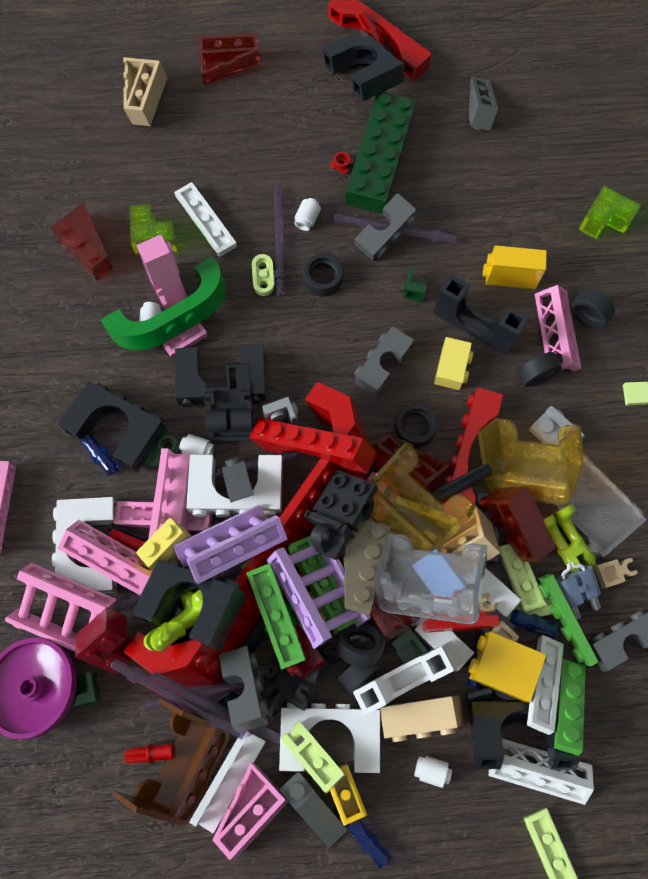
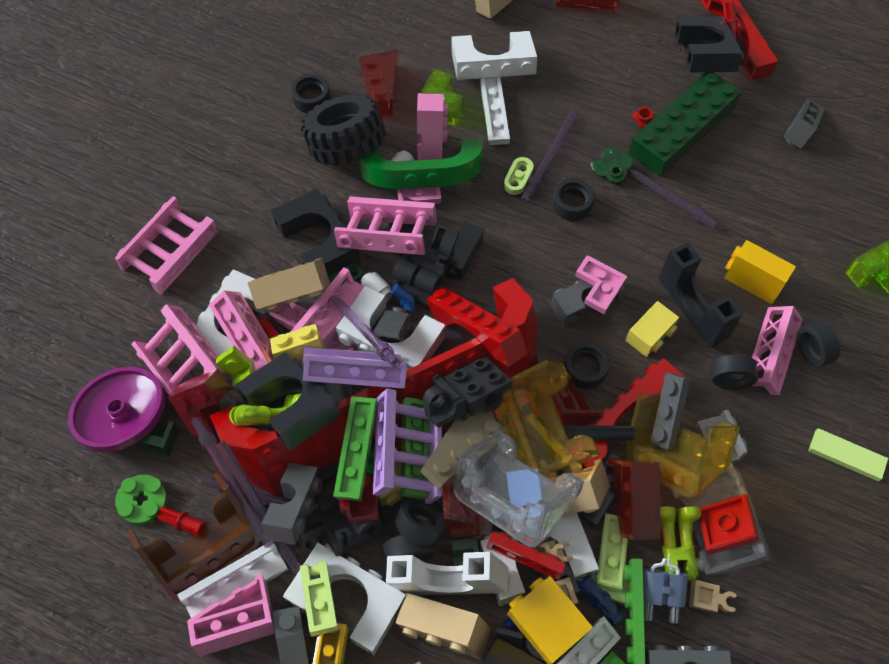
camera: 30 degrees right, 10 degrees down
(16, 272) = (309, 81): none -> black tyre
(80, 310) = (343, 129): none -> black tyre
(87, 749) = (134, 487): none -> bright green plate
(99, 454) = (290, 252): clear blue pin -> none
(120, 592) = (235, 364): none -> lime bracket
(122, 491) = (289, 285): none -> tan wedge
(163, 184) = (475, 65): none -> white arch
(172, 371) = (386, 210): none -> bright pink fence
(229, 444) = (406, 298): none -> blue arm
(251, 515) = (383, 350): none -> clear purple bar
(281, 411) = (466, 287): light grey bracket -> none
(307, 214) = (587, 144): white brick -> none
(337, 221) = (612, 162): none -> dark green plate
(373, 241) = (637, 193): dark grey arch -> none
(396, 342) = (605, 281): none -> bright pink plate
(415, 287) = (652, 248): dark green panel -> none
(508, 433) = (670, 411): none -> dark grey plate
(601, 506) = (728, 524): none -> red tile

